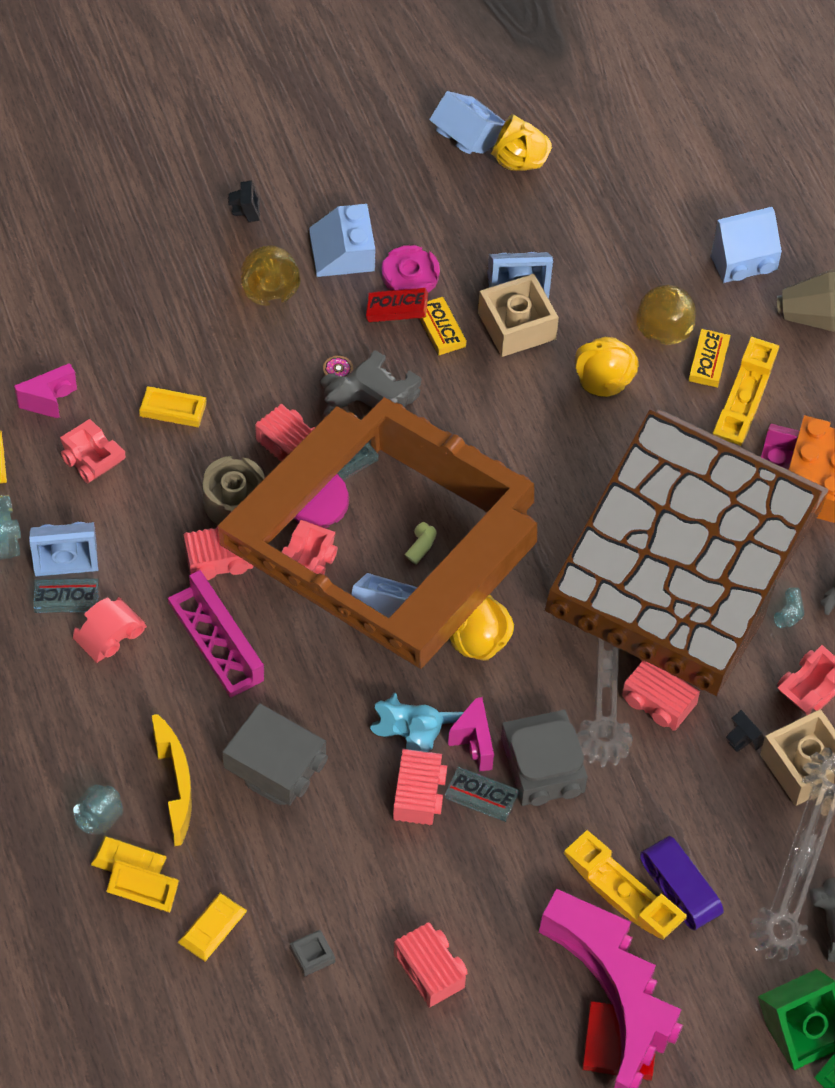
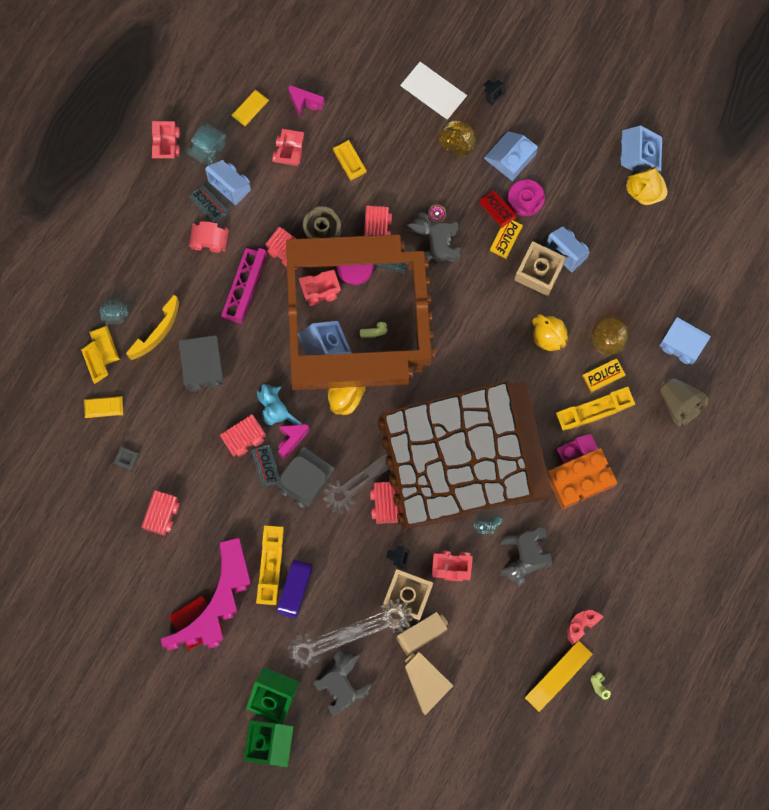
camera: 50 degrees right, 20 degrees up
(177, 262) = (433, 90): none -> white sticker

